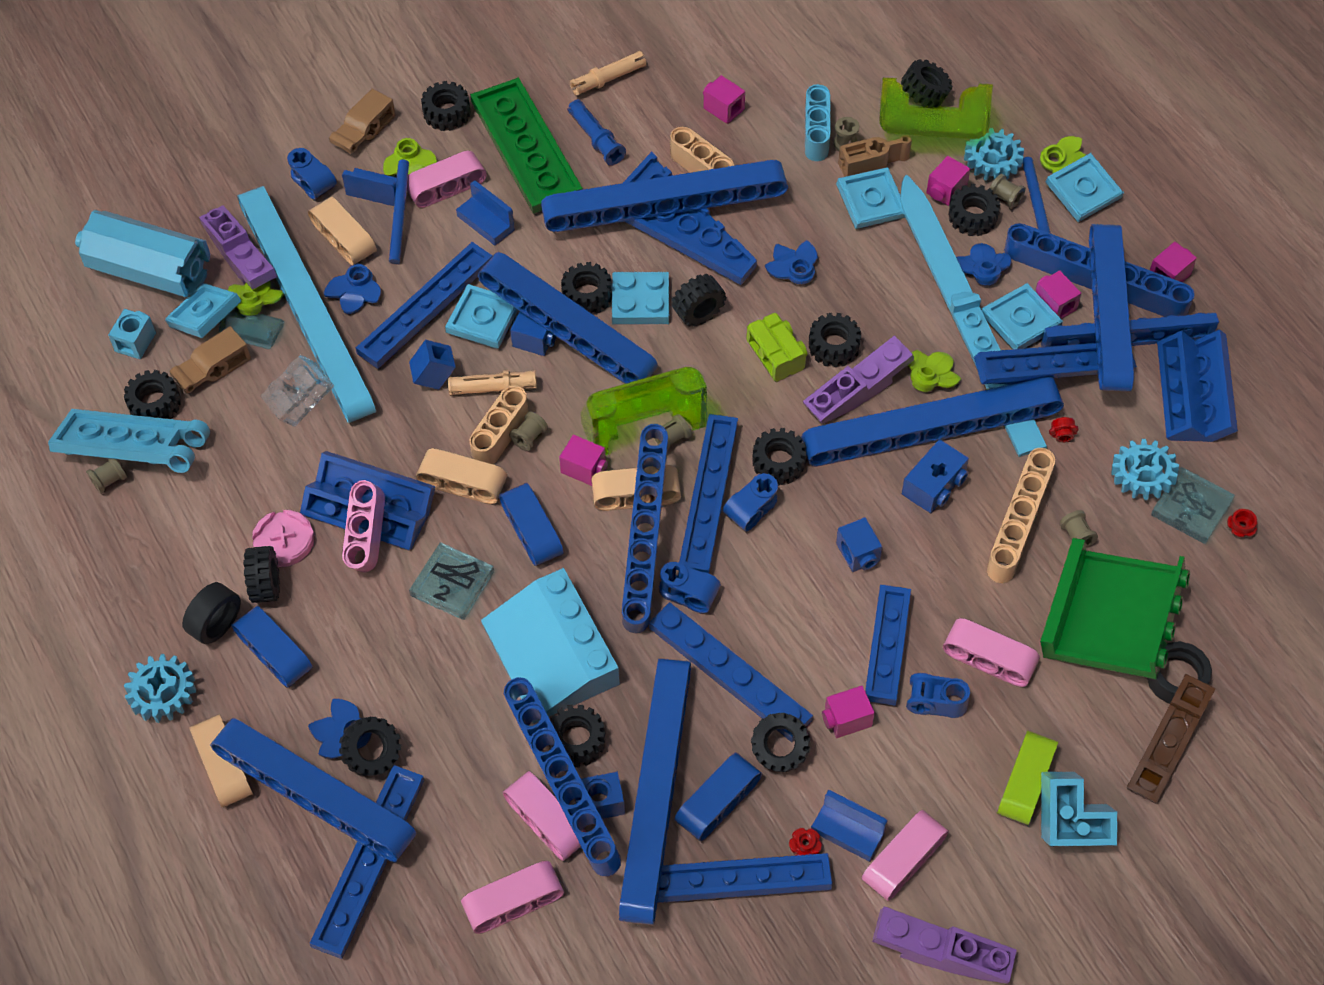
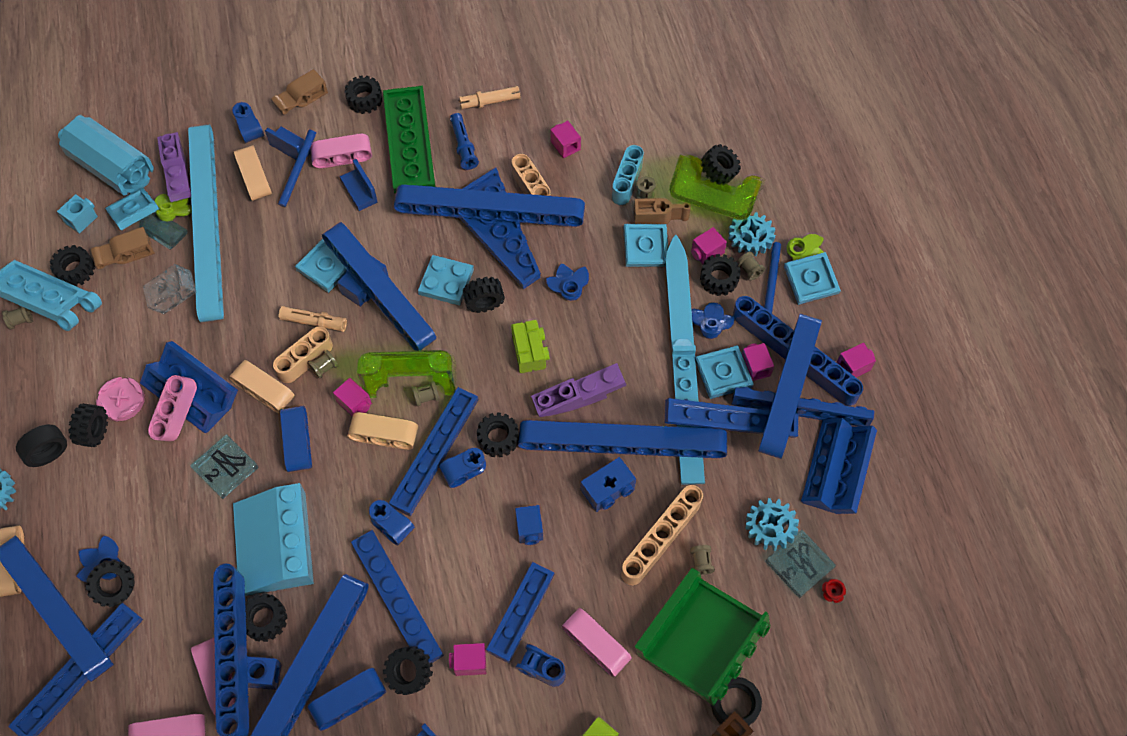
camera: 15 degrees right, 5 degrees up
(272, 646) = (77, 482): blue beam -> none
(352, 291) = (243, 221): blue plate -> none
(411, 151) = (323, 126): lime plate -> none
(423, 306) = (285, 246): blue plate -> none
(432, 364) = (272, 294): blue brick -> none
(588, 275) = (407, 252): black tyre -> none
(645, 541) = (372, 479): blue beam -> none
(834, 326) = (575, 340): black tyre -> none
(932, 371) = (642, 396): lime plate -> none
(1063, 429) = (722, 473): red plate -> none

